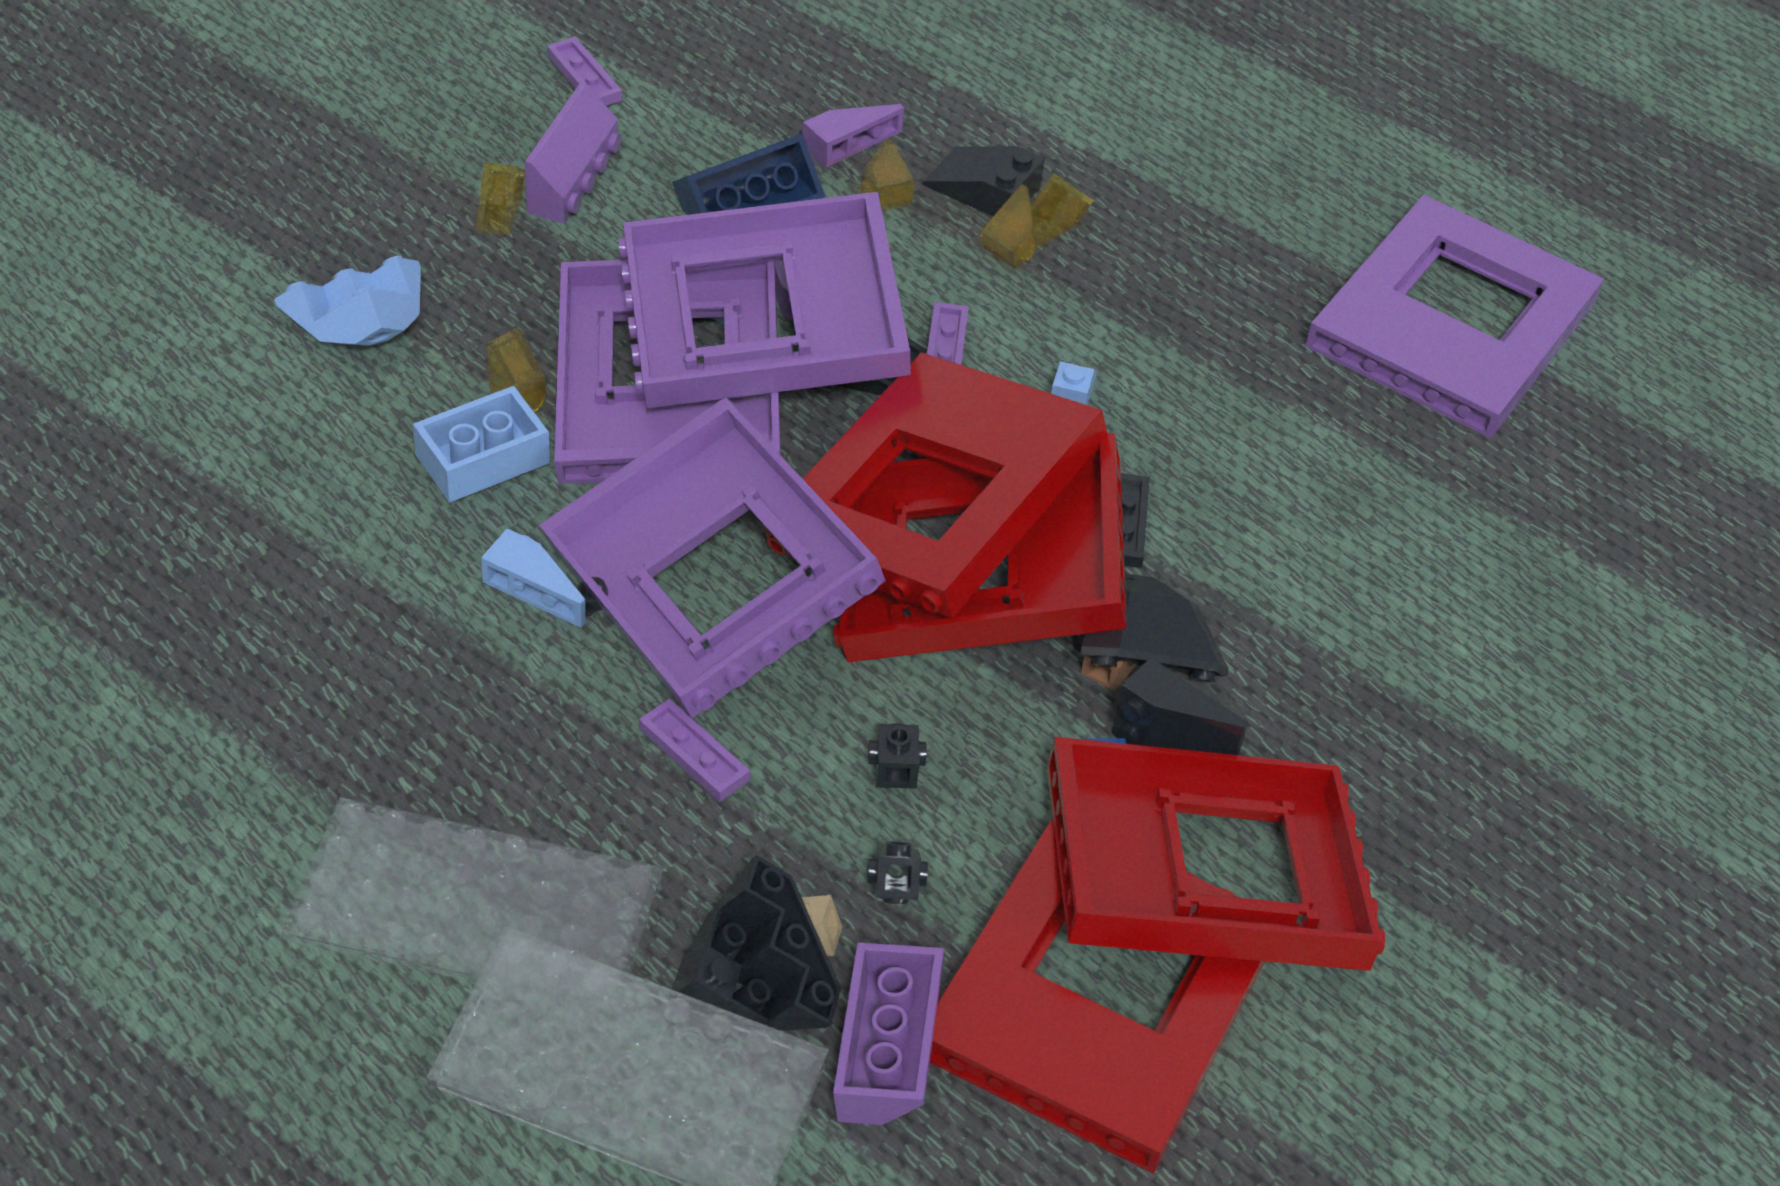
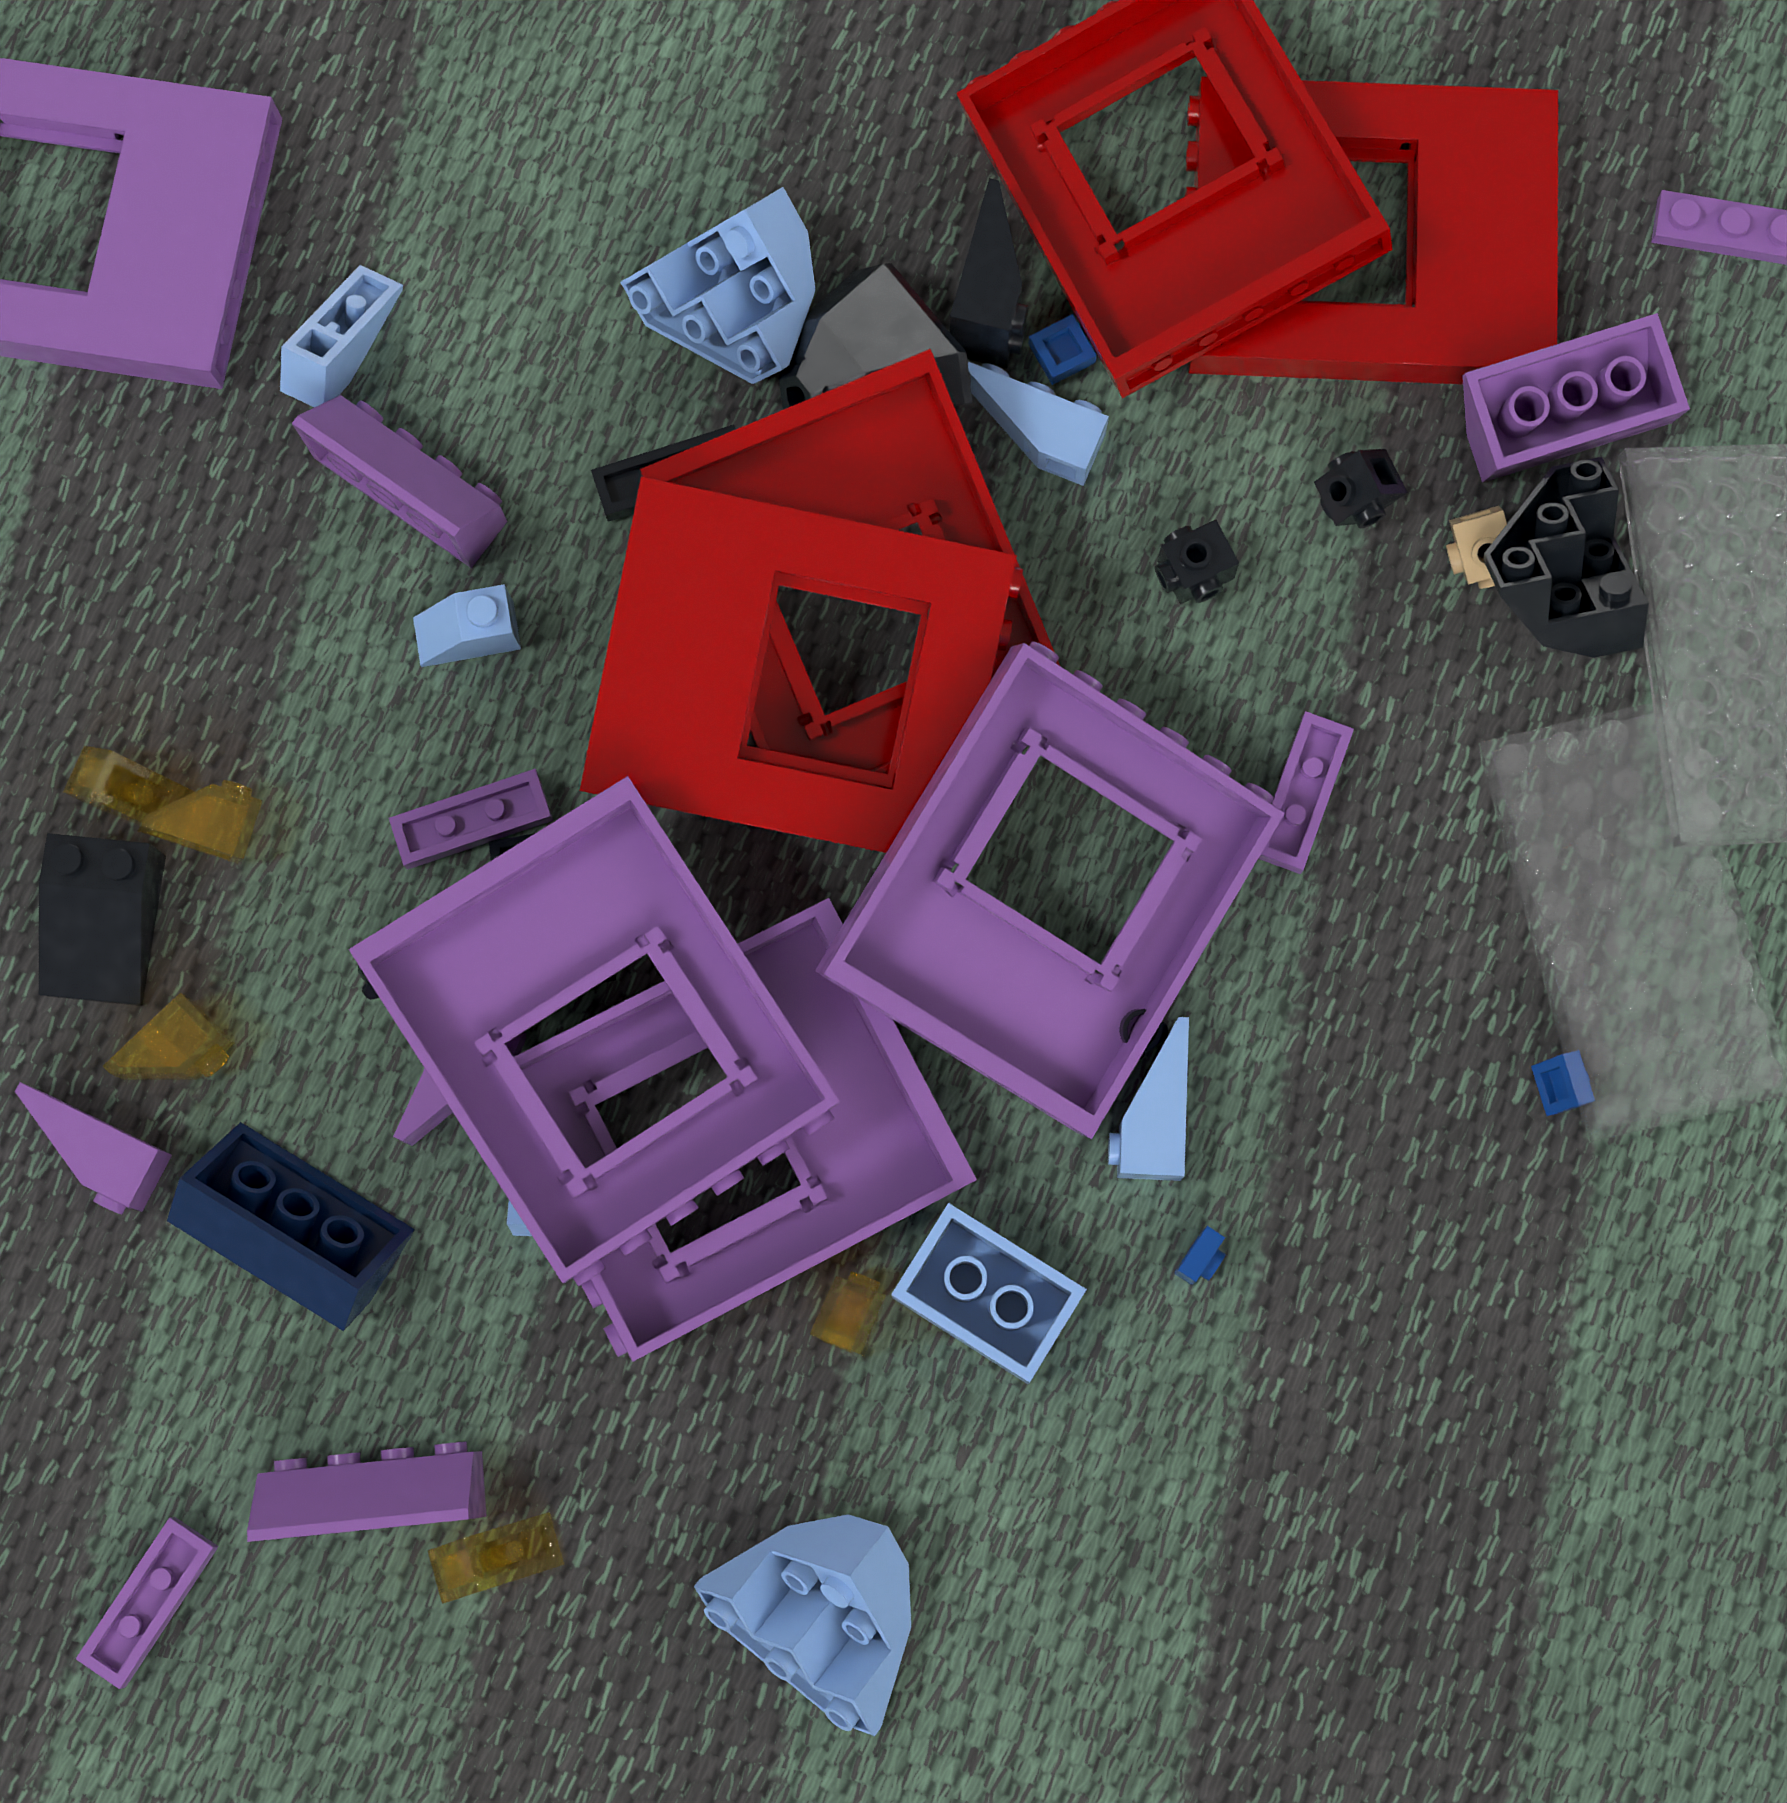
camera: 105 degrees left, 30 degrees up
(390, 795) = (1563, 1083): none -> blue plate
(426, 557) = (1202, 1257): none -> blue plate
(1065, 713) = (1047, 428): none -> light blue slope
(1190, 380) = (402, 477): none -> medium lavender slope
(1241, 588) = (734, 290): none -> light blue brick
(1310, 397) = (336, 337): none -> light blue slope

